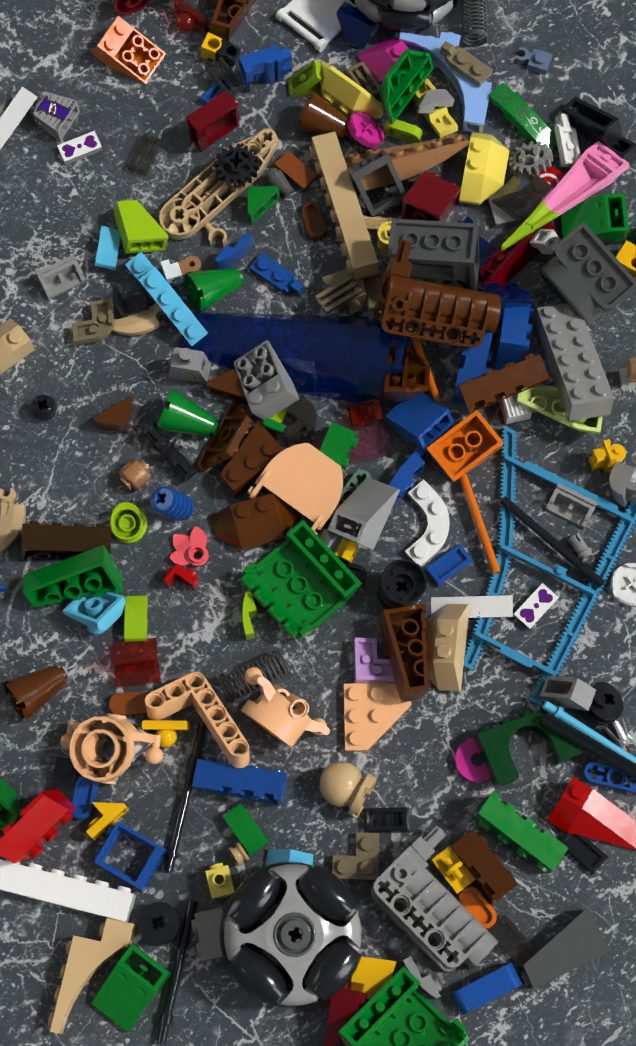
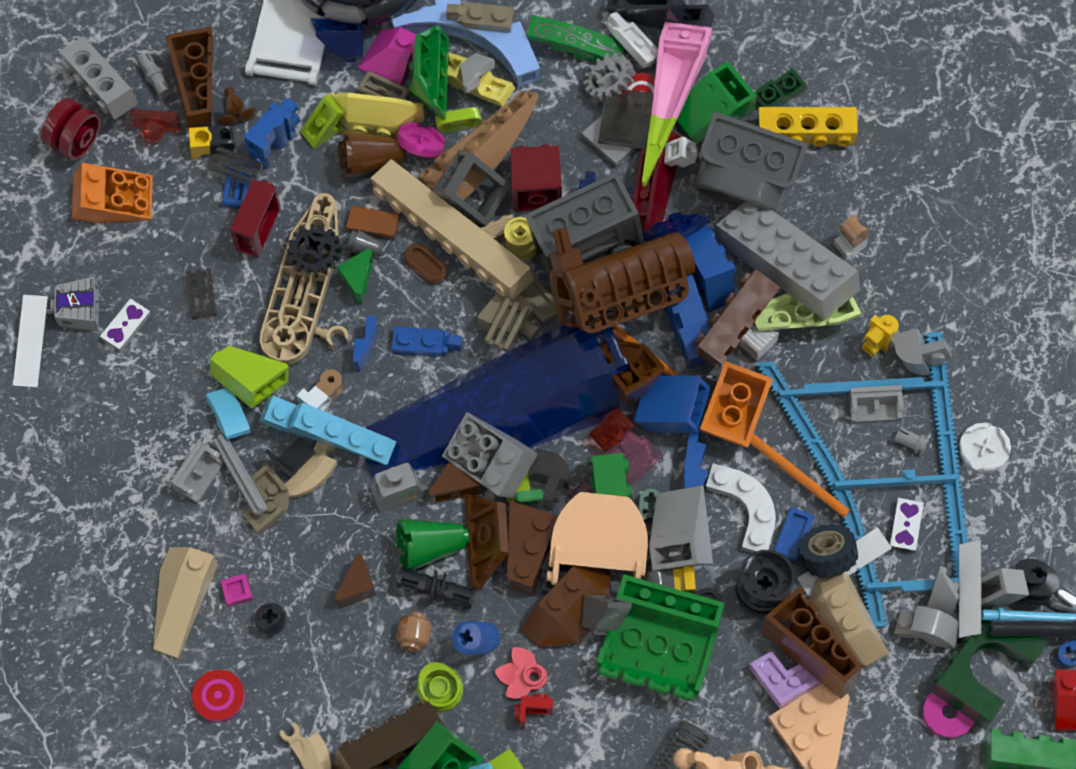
camera: 30 degrees left, 5 degrees down
(35, 374) = (236, 590): none -> dark pink tile
(87, 295) = (240, 475): none -> light grey axle
(211, 286) = (365, 392): green cone -> none
(249, 610) = (624, 699): lime slope -> none
(250, 34) = (234, 107): none -> reddish brown plant
(270, 539) = (604, 613): none -> dark grey slope
(463, 590) = (828, 550): none -> black wheel
(483, 169) = (566, 113): light yellow wedge -> none
(502, 689) = (928, 624): none -> light grey brick
(527, 673) = (944, 593): none -> light grey slope
(548, 680) = (970, 588): none -> white sticker
(584, 568) = (931, 459): black bar -> none

